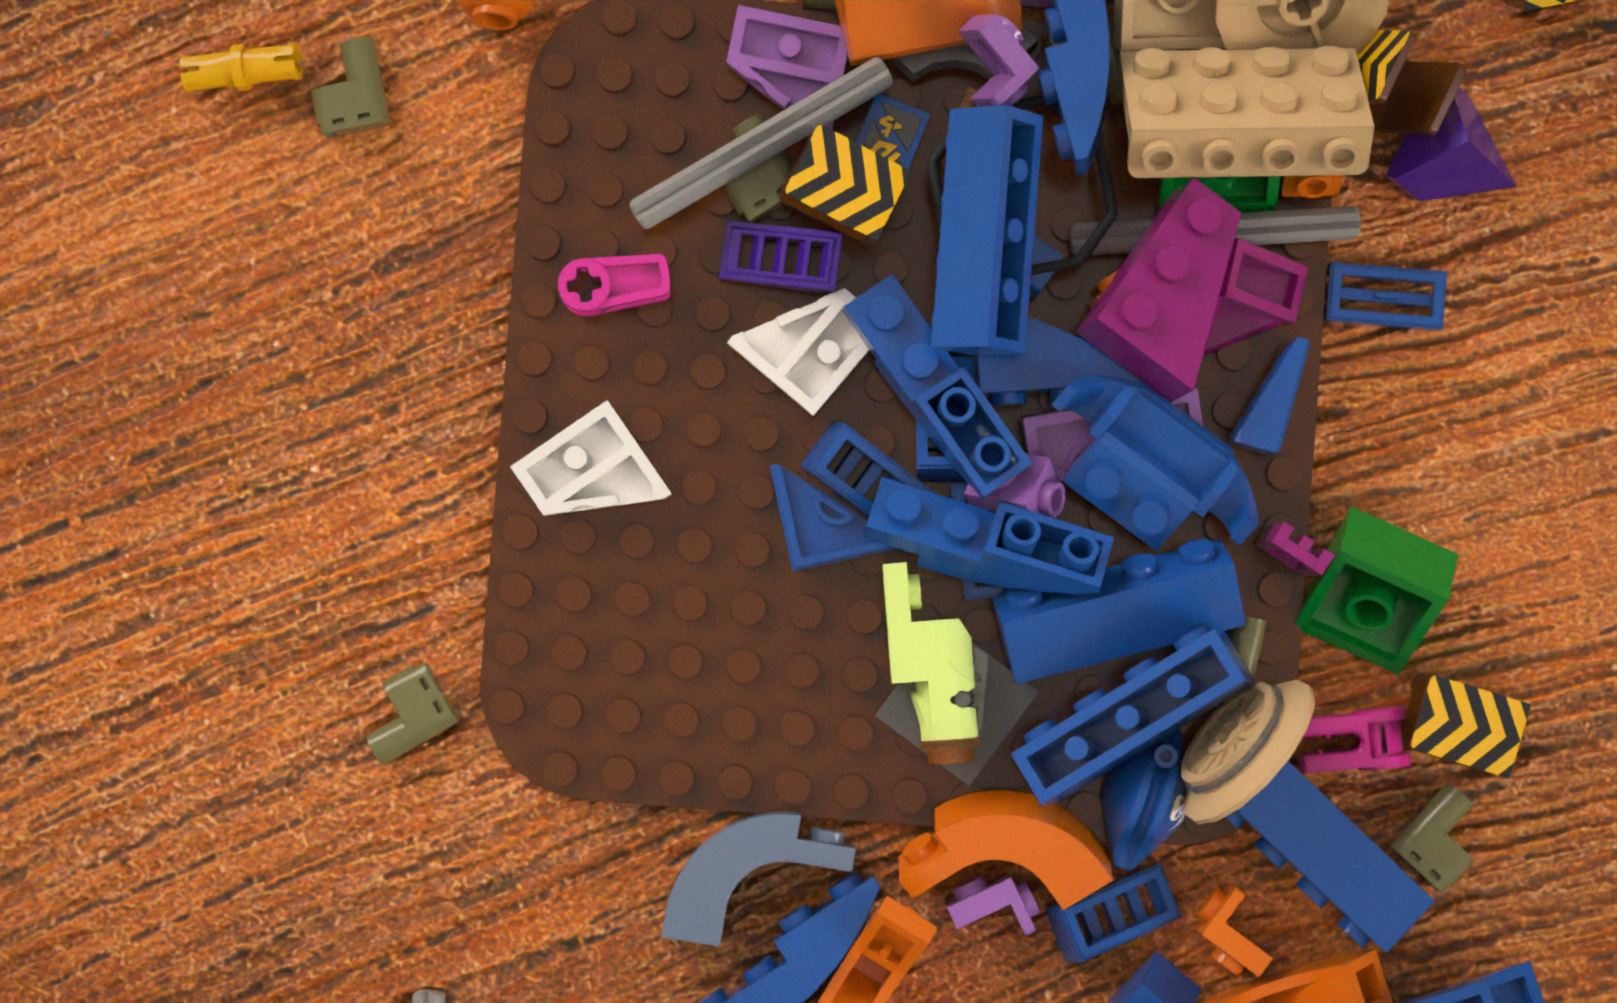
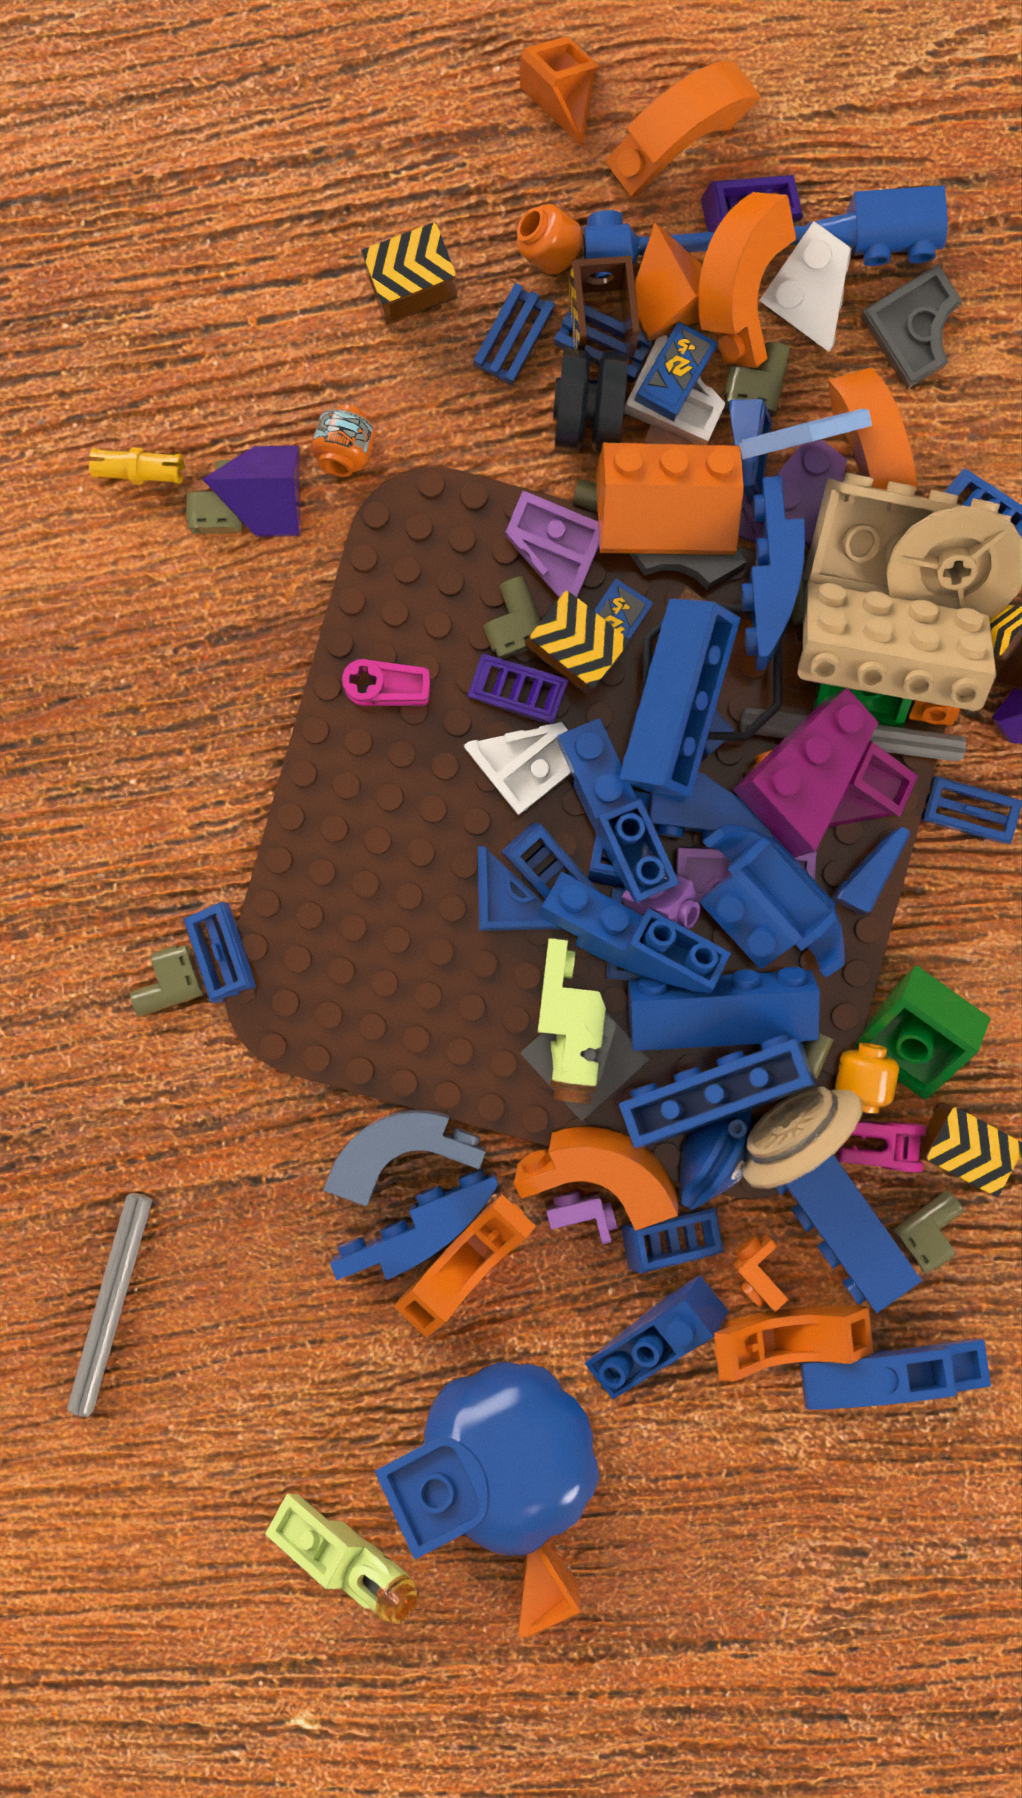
camera: 10 degrees right, 0 degrees up
(406, 65) = (262, 489): none -> dark purple slope
(487, 651) = (235, 948): none -> blue tile
(590, 467) = (340, 821): white wing -> none
(761, 143) = (519, 598): light grey axle -> none
(1000, 49) = (716, 560): medium lavender bracket -> none
(1294, 551) = (867, 991): magenta tile -> none
(1319, 657) = (868, 1075): none -> light orange head

